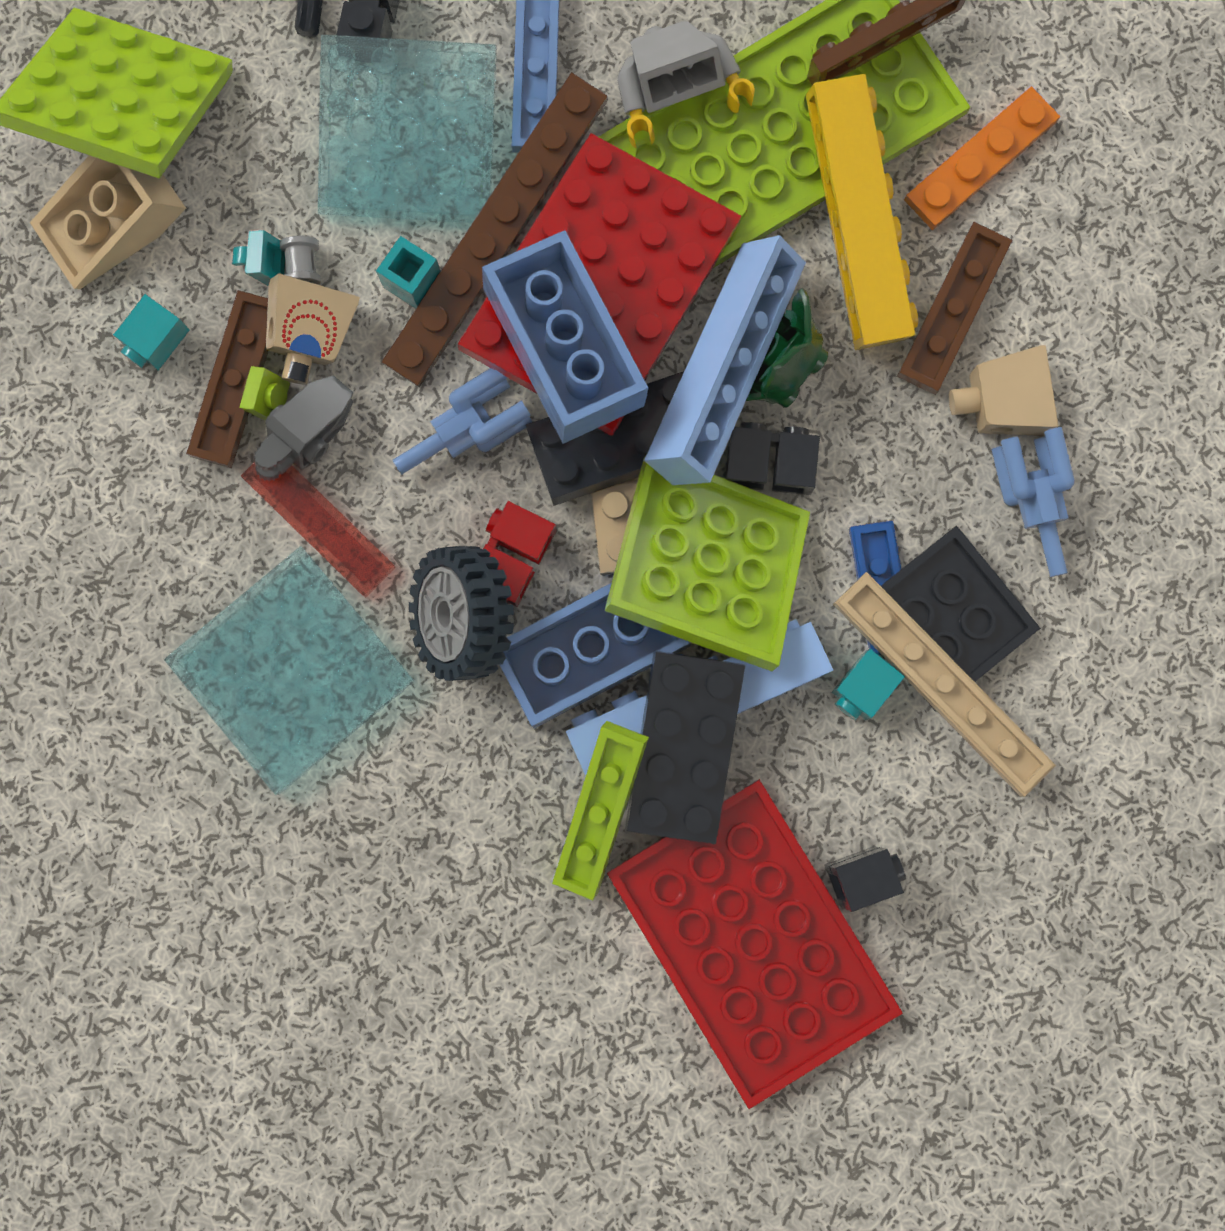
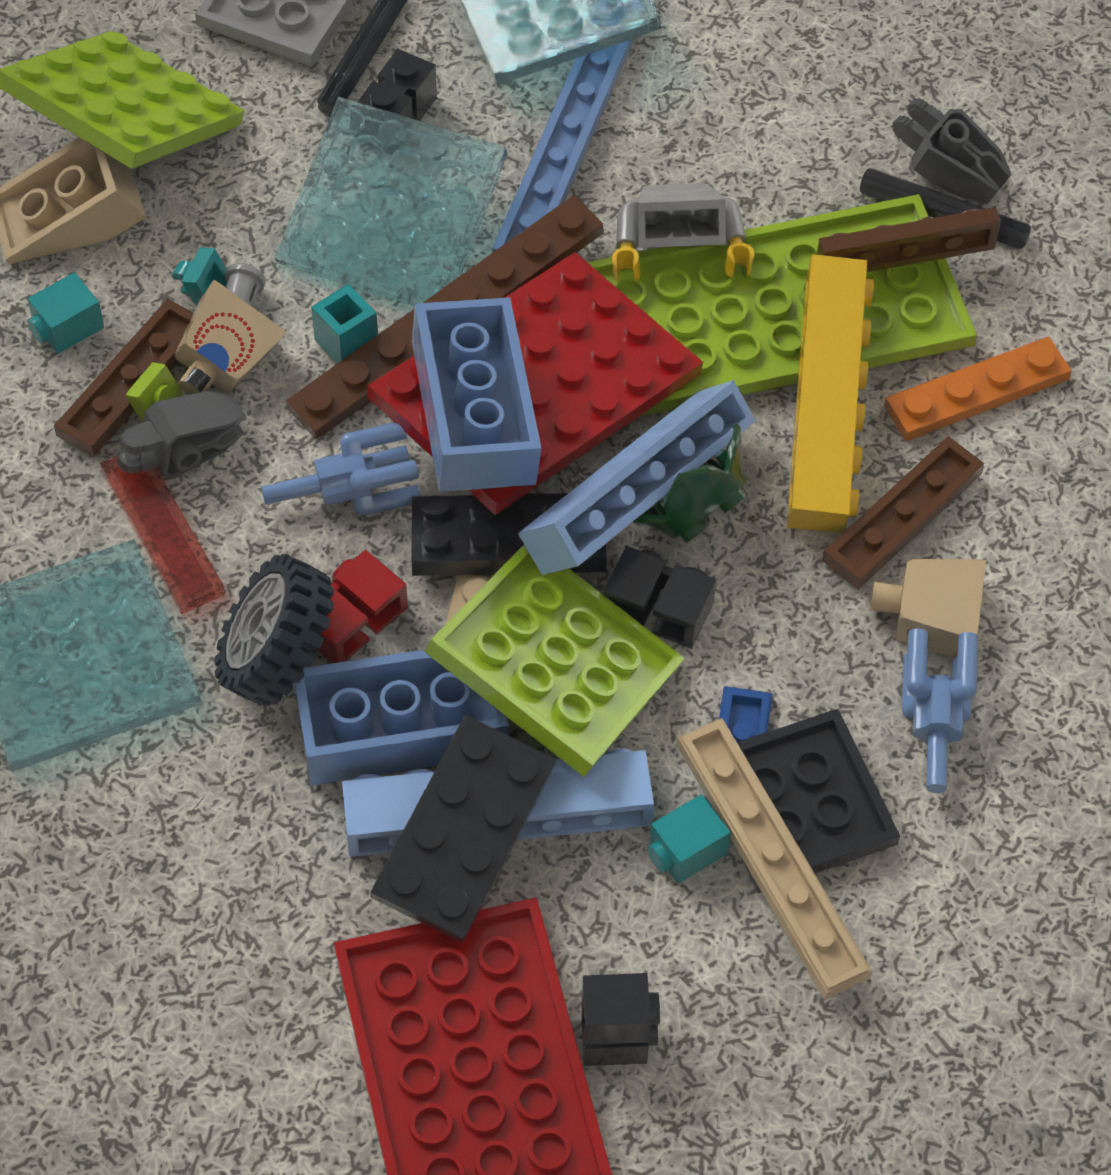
camera: 15 degrees right, 25 degrees down
(600, 810) = (348, 867): lime plate -> none

